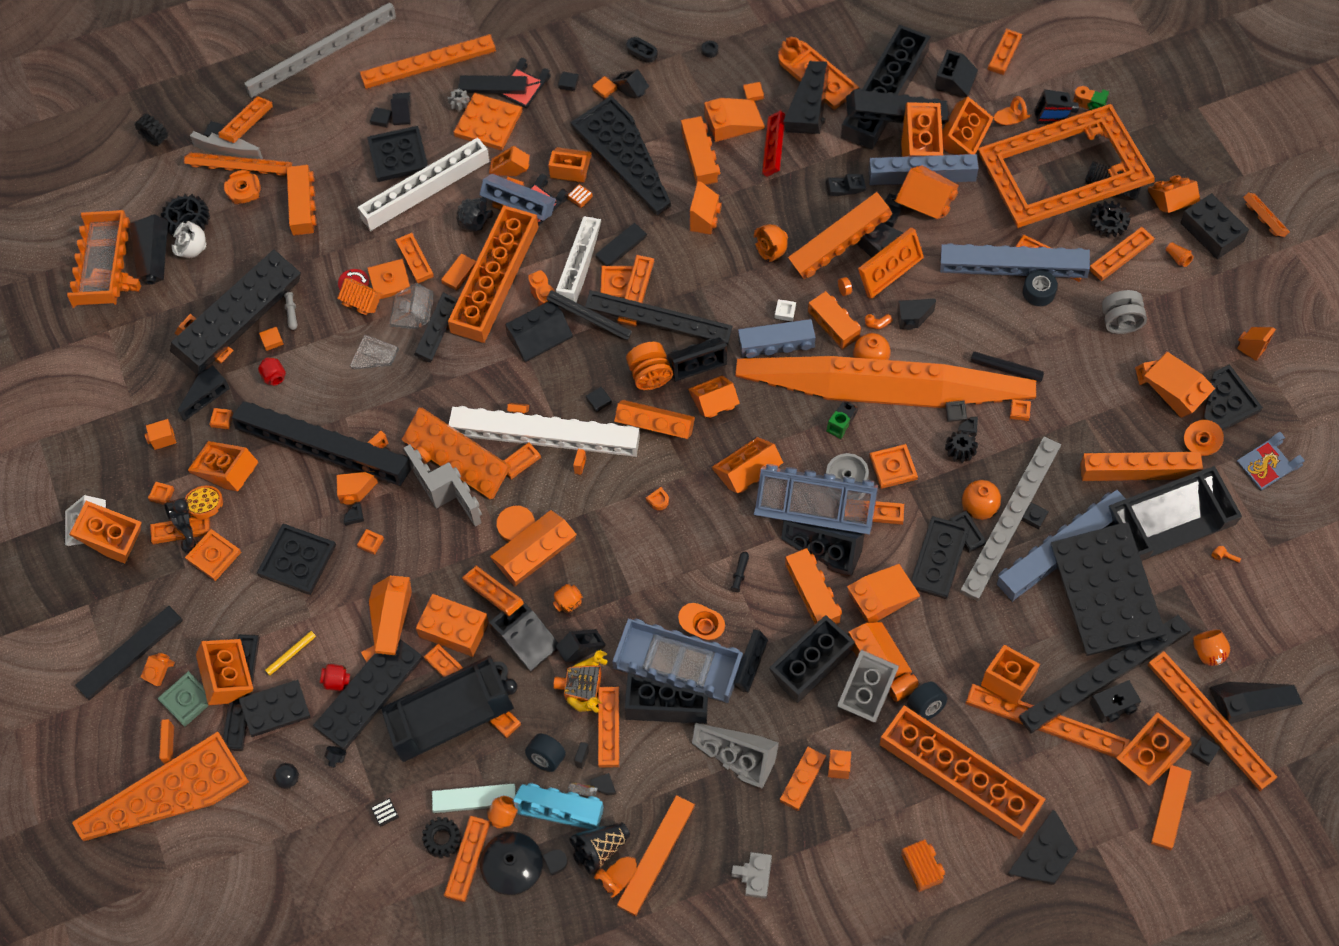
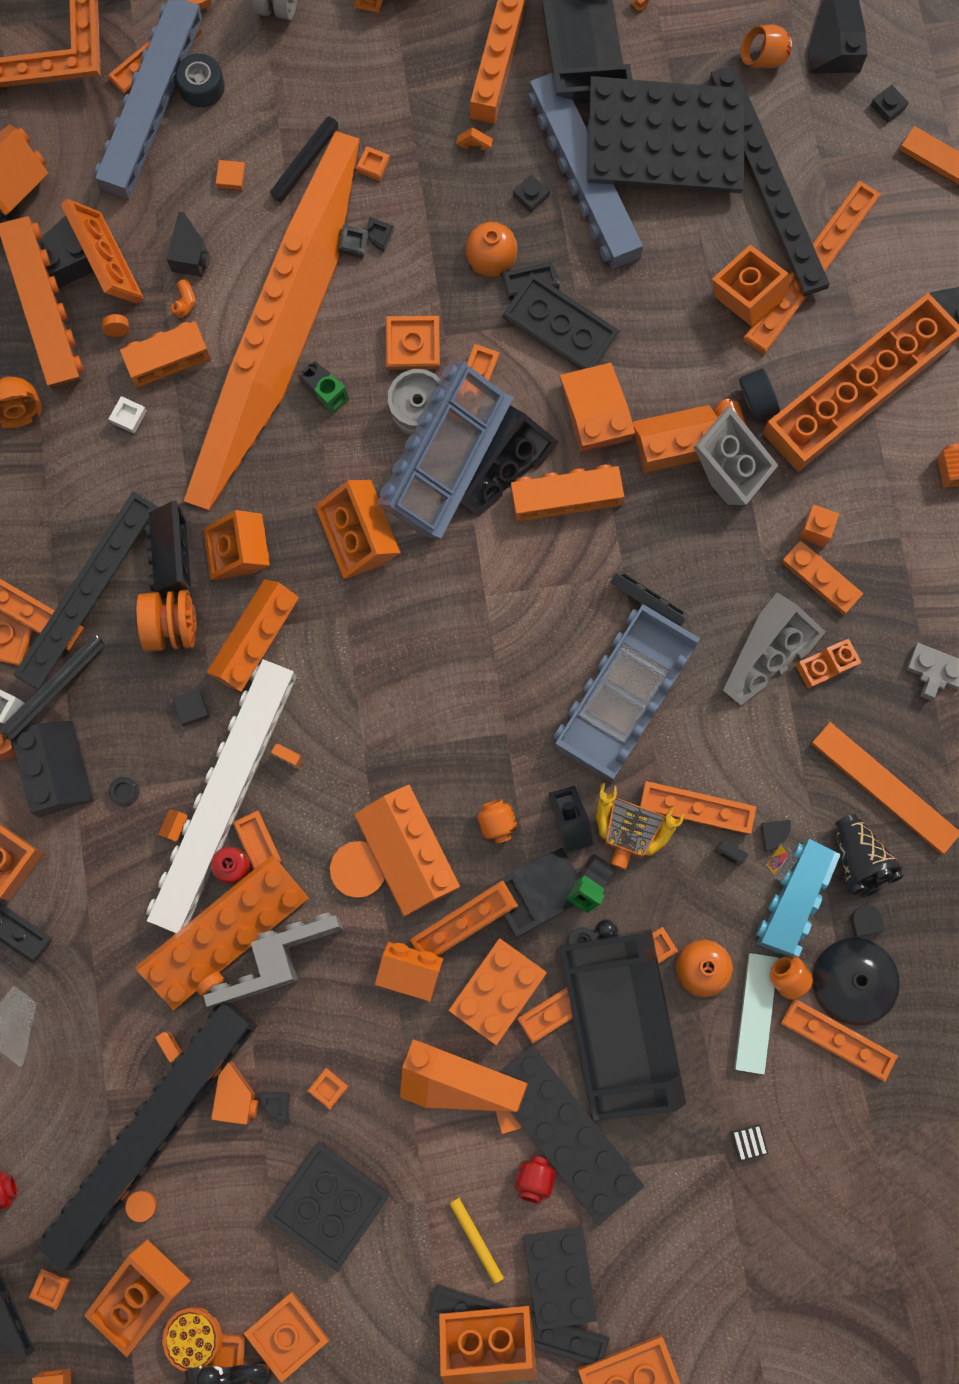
camera: 80 degrees left, 15 degrees up
(278, 454) = (141, 1206): none -> orange tile
(286, 776) = (669, 1277): black piece -> none
(334, 755) = (652, 1199): black tile -> none
(433, 828) = (822, 1064): black tyre -> none
(454, 567) = (409, 971): none -> orange brick
(497, 756) = (692, 975): none -> orange cylinder
(500, 445) = (240, 864): none -> red head
(534, 376) = (123, 791): none -> black tile
(538, 666) = (591, 883): none -> leg
(545, 752) = (720, 900): black wheel -> none
(617, 875) = (906, 842): orange piece -> none
(658, 499) = (374, 662): orange tile -> none
(663, 702) = (680, 735): black wedge -> none
(701, 621) = (583, 646): orange piece -> none
(738, 795) = (828, 663): none -> orange slope
(739, 575) = (509, 578): black piece -> none
(776, 338) = (170, 438): sand blue brick -> none
(812, 658) = (671, 517): black slope -> none
(872, 347) = (227, 319): orange cylinder -> none
(954, 446) = (418, 246): black gear -> none
(978, 325) = (230, 175): none -> orange tile
(1010, 519) = (526, 223): light grey plate -> none
(1060, 463) = (474, 138): none -> orange tile
(1122, 694) = (809, 179): black brick -> none
(1154, 749) = (884, 153): orange slope -> none
(1212, 721) = (855, 82): orange plate -> none

